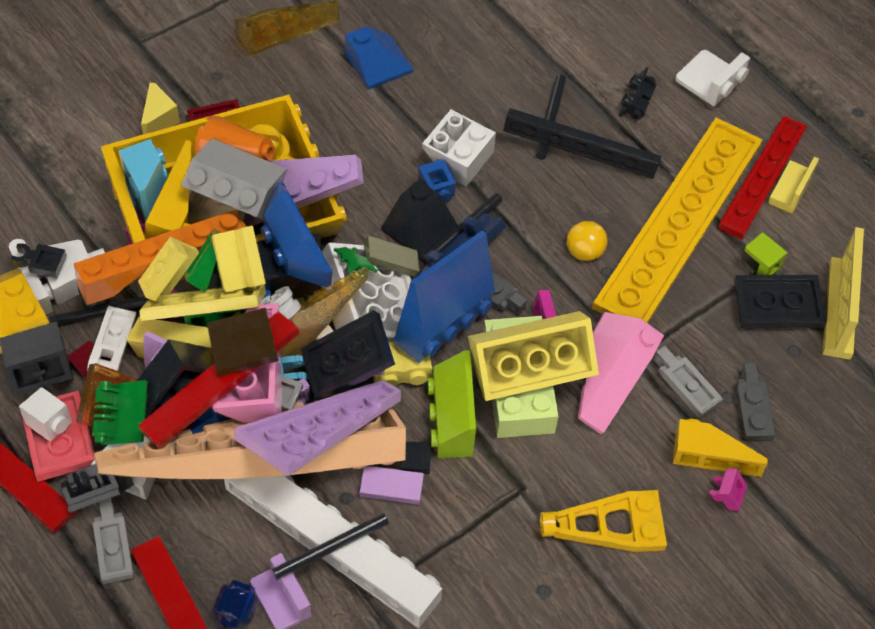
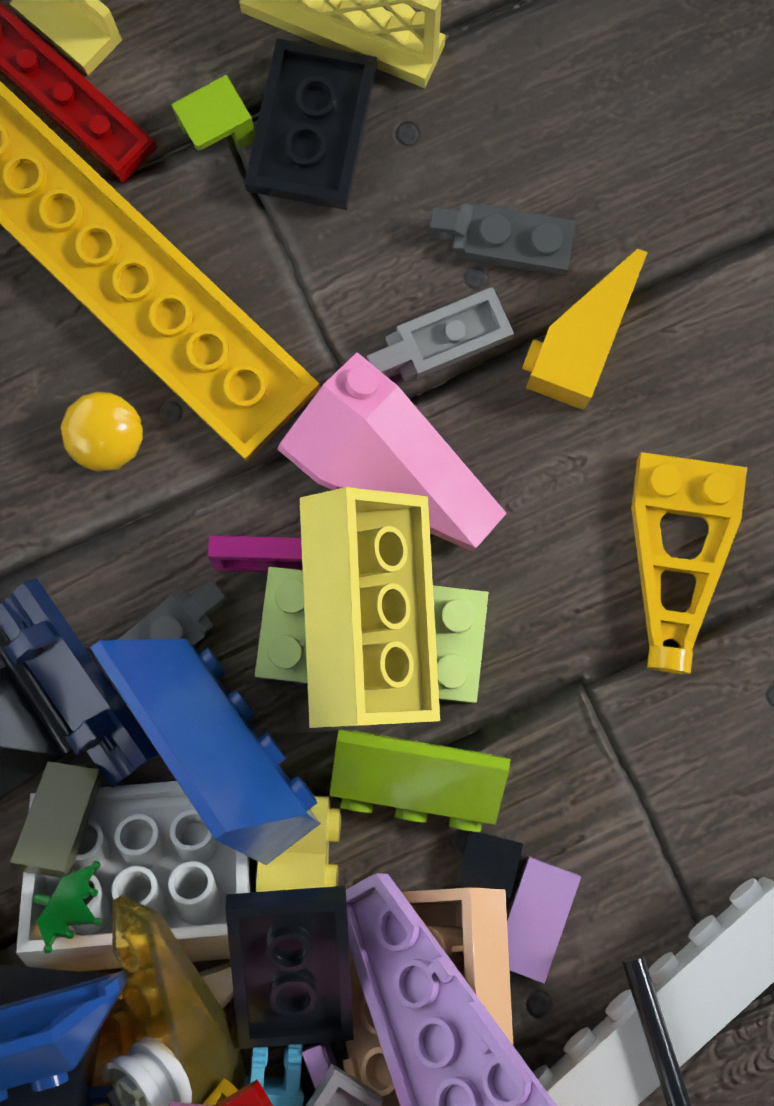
camera: 70 degrees left, 25 degrees up
(731, 489) = (667, 326): dark pink tile -> none

